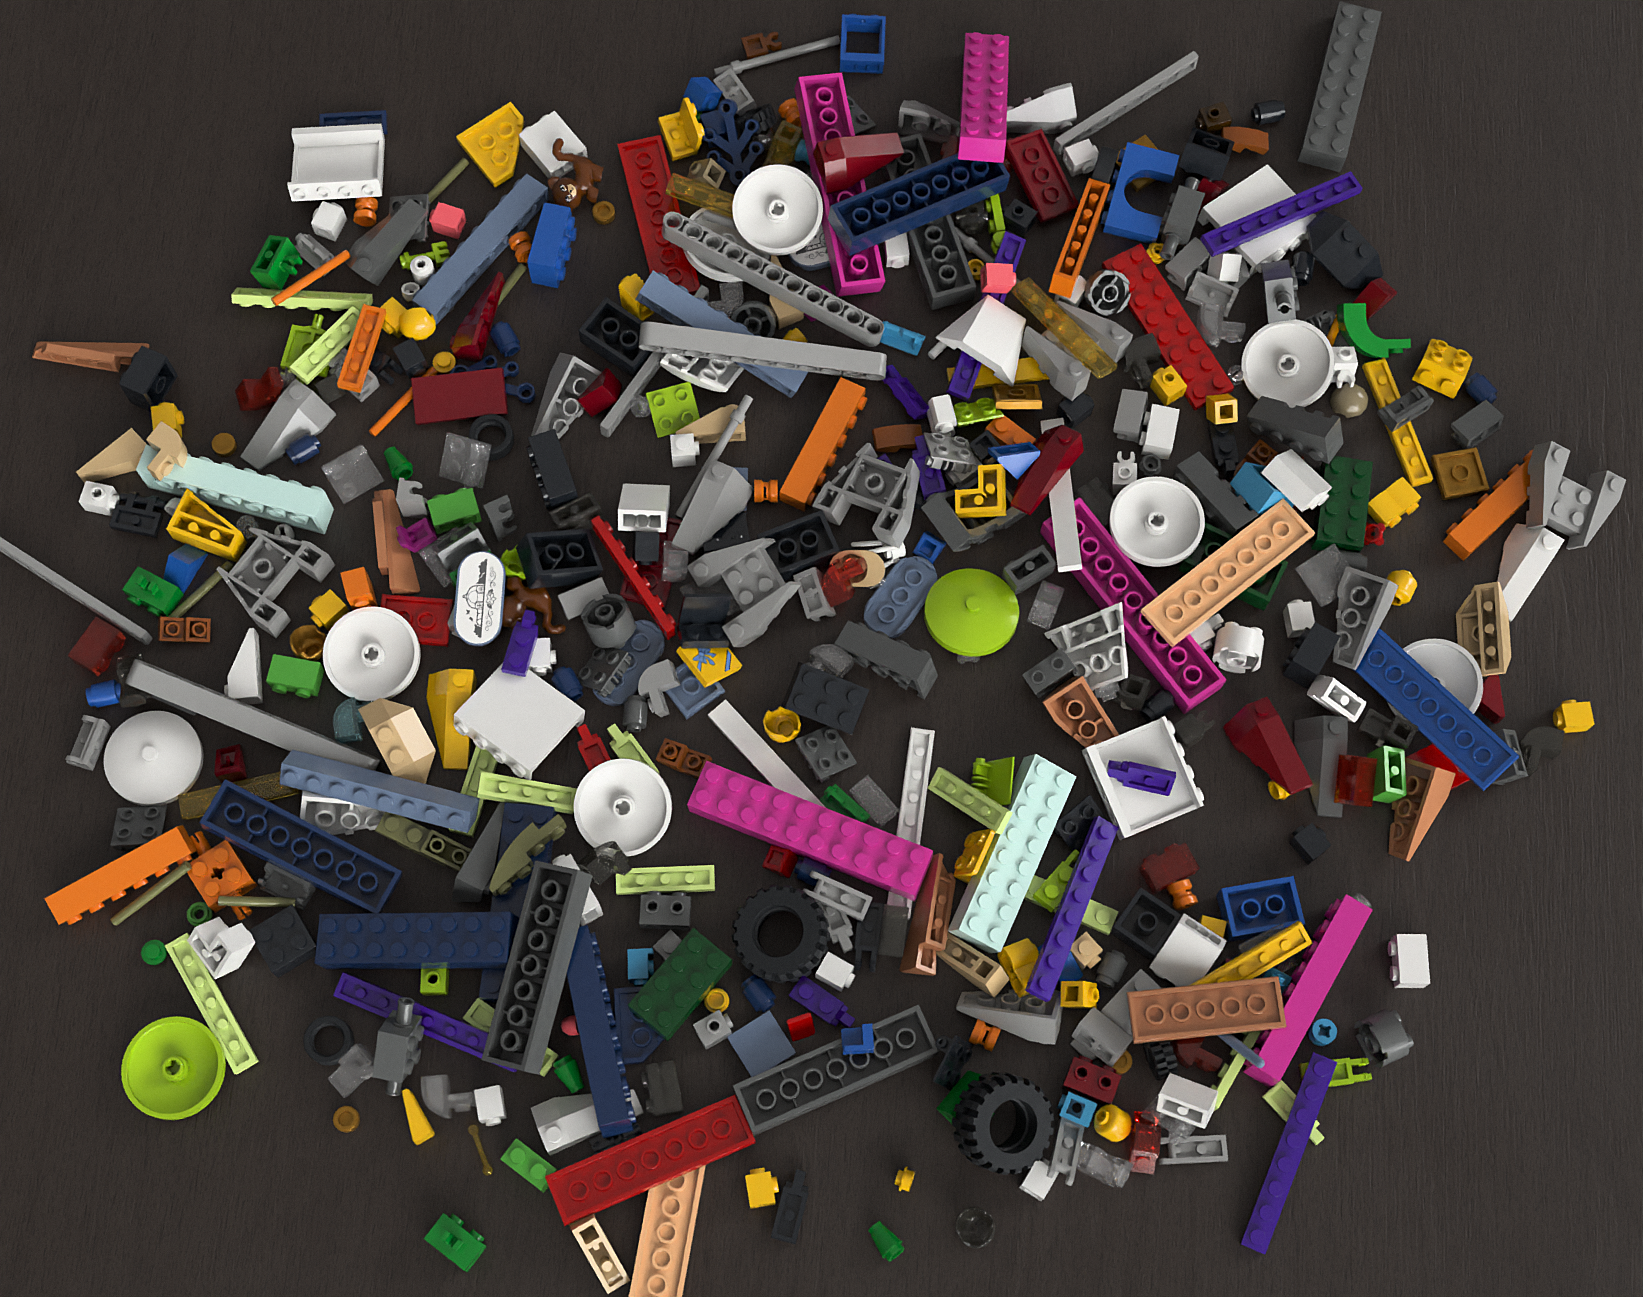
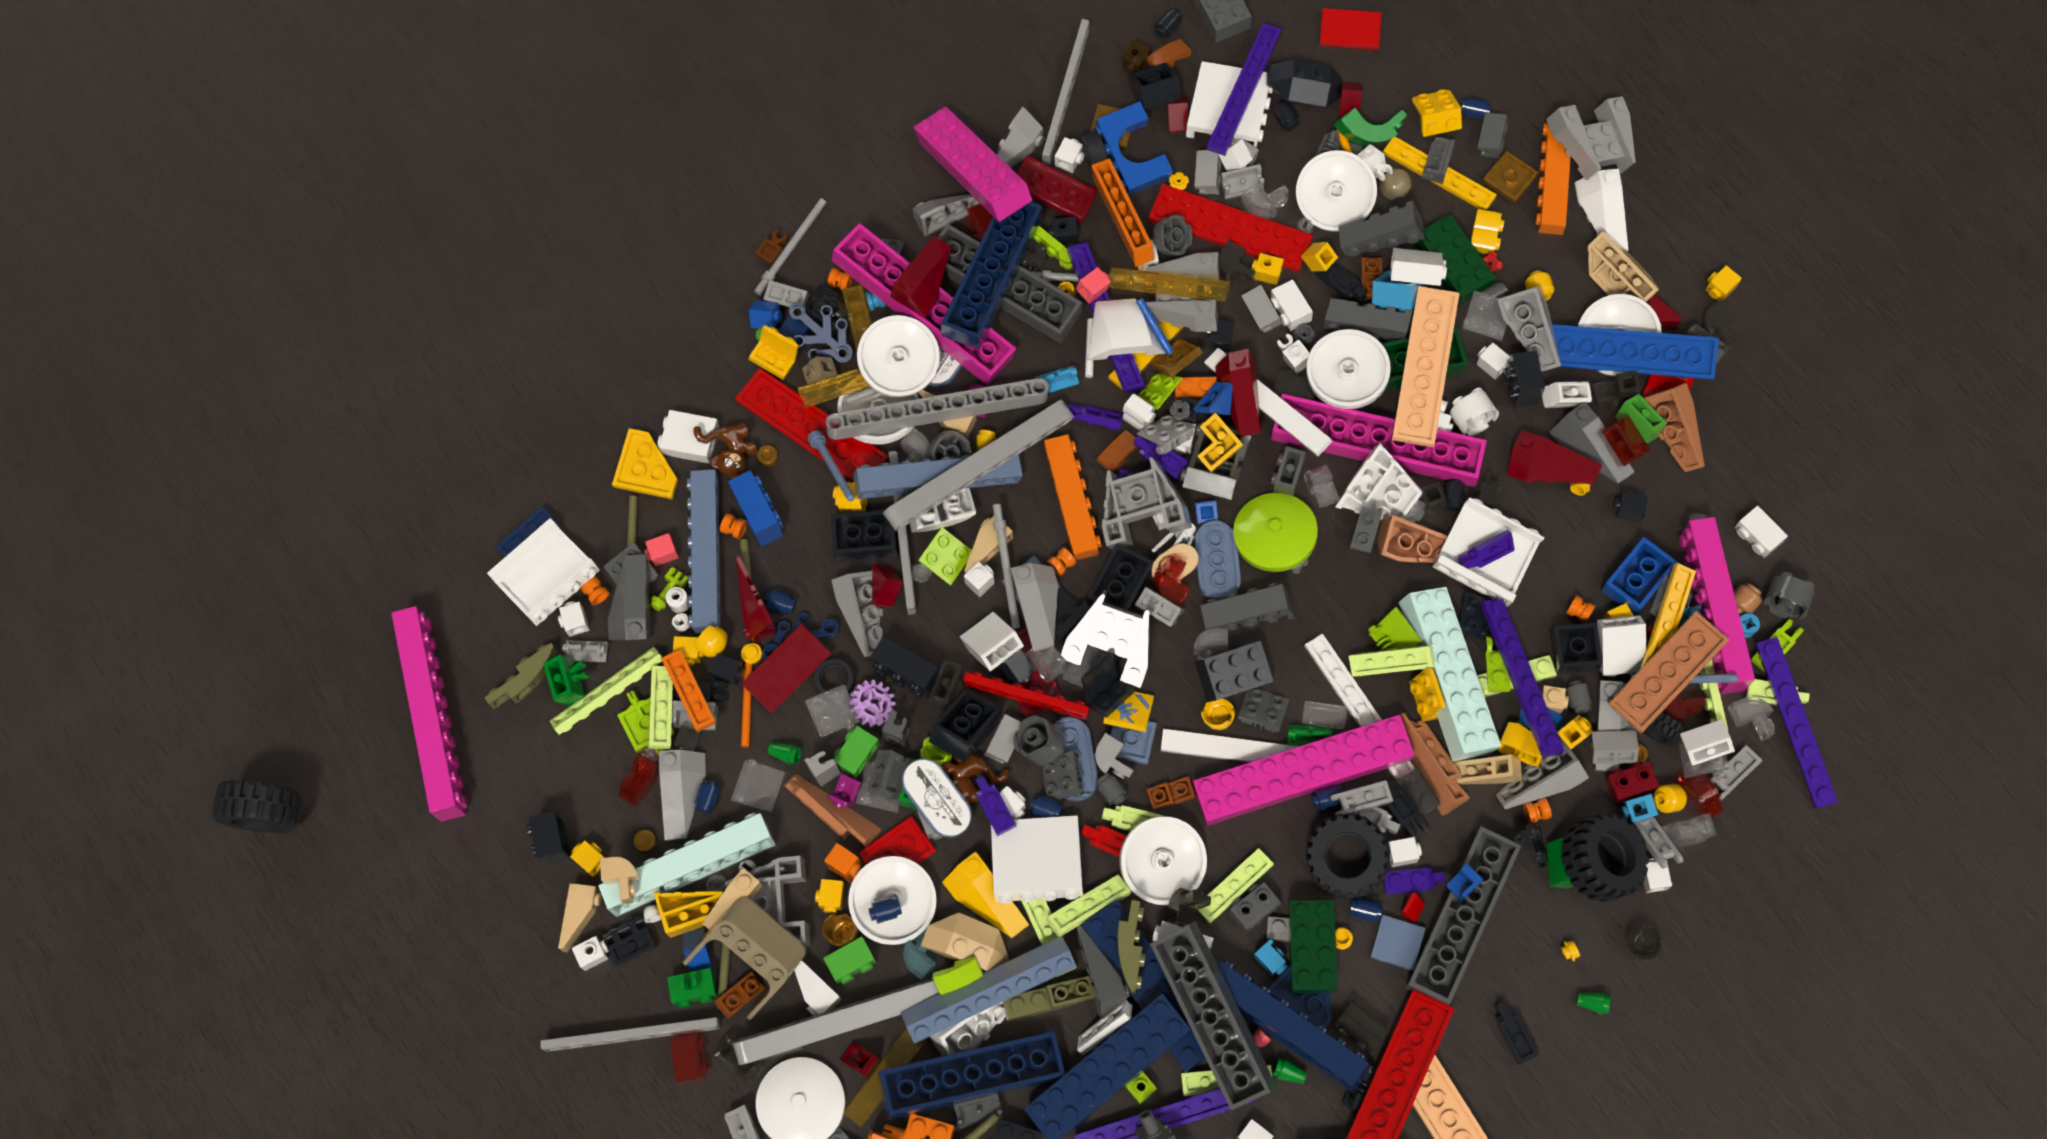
camera: 30 degrees left, 0 degrees up
(88, 354) = (485, 855): nougat wedge -> none
(103, 693) = (724, 1087): blue brick -> none
(145, 204) = (429, 714): none -> dark pink brick
(227, 595) = (757, 941): none -> dark tan windscreen
(239, 546) = (741, 886): none -> tan slope
(248, 240) = (520, 685): none -> olive slope
(311, 277) = (602, 670): orange bar -> none
(355, 655) = (885, 910): none -> dark blue brick
(364, 759) = (954, 978): none -> lime slope
(446, 903) = (1104, 1028): none -> white plate
(506, 470) = (872, 694): none -> lavender gear
(570, 1120) = (1315, 1103): white wedge -> none
(650, 229) = (818, 441): none -> sand blue piece
(713, 1029) = (1357, 959): light grey brick -> none
(761, 1188) = (1484, 1037): yellow brick -> none
(780, 861) = (1298, 808): red slope -> none
(862, 61) = (854, 205): blue window -> none
(896, 251) = (1003, 322): white brick -> none
(975, 445) = (1185, 410): none -> dark grey plate
(1020, 353) = (1154, 326): none -> blue bar
(1169, 867) = (1556, 598): clear red brick -> none
(1180, 218) = (1177, 144): dark grey brick -> none
(1259, 1109) = (1756, 711): none -> clear brick
(1279, 291) = (1289, 144): dark grey brick -> none
(1341, 1008) = (1747, 598): none -> medium nougat head
(1429, 238) = (1350, 29): none -> red tile

